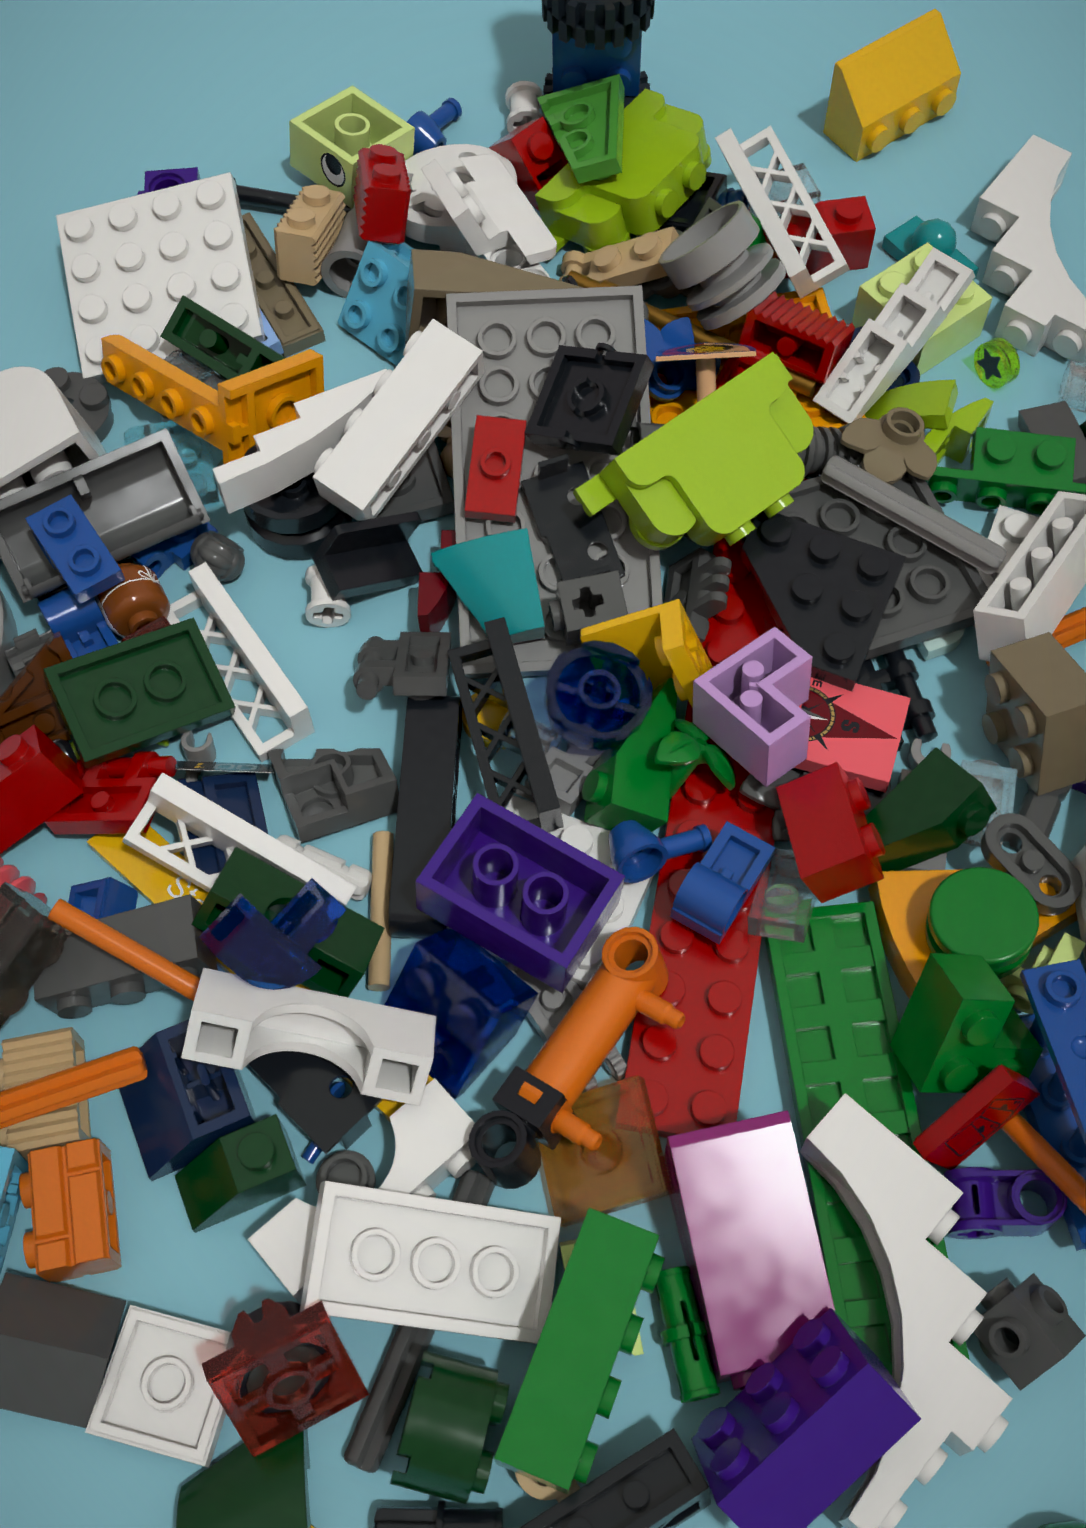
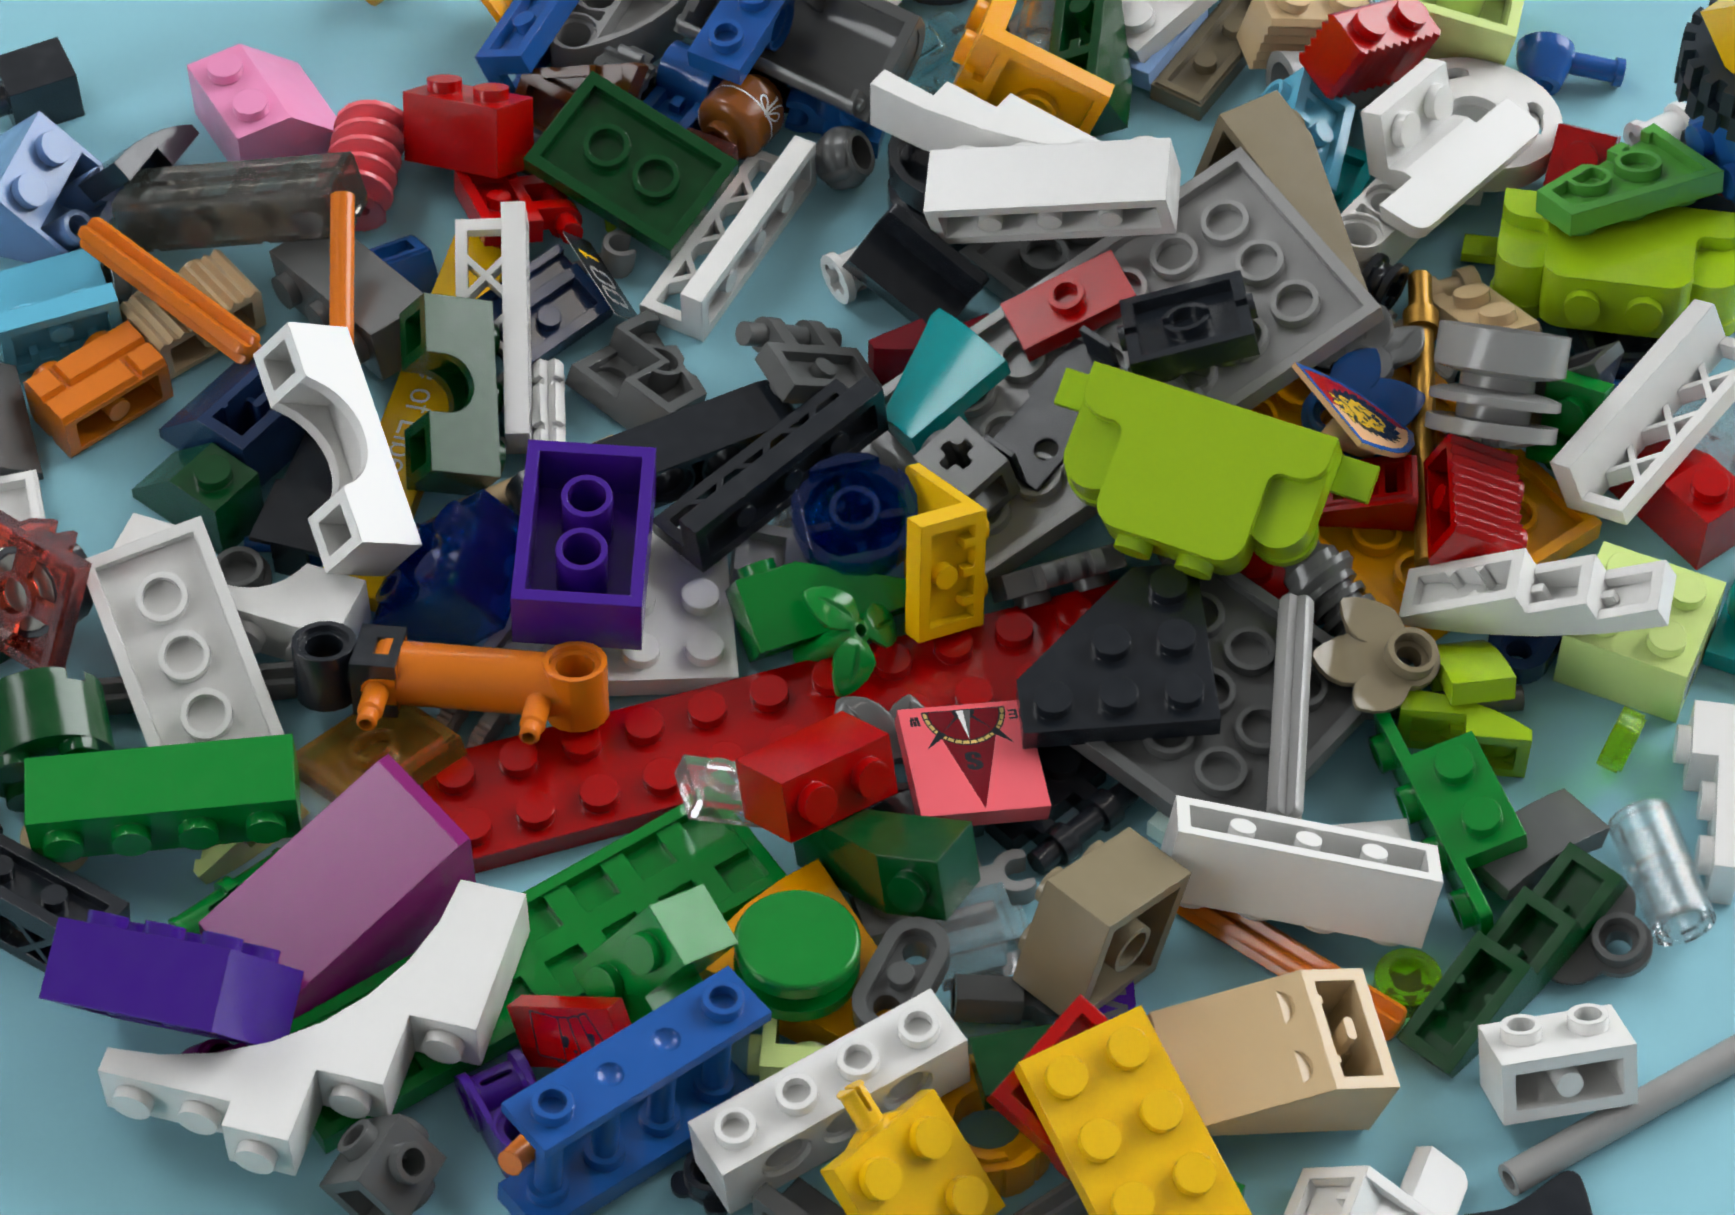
camera: 60 degrees right, 10 degrees down
(277, 950) = (394, 367): clear blue brick -> none
(642, 854) = (703, 641): blue bar -> none
(721, 882) = (709, 722): blue plate -> none
(754, 704) = (926, 637): lavender brick -> none

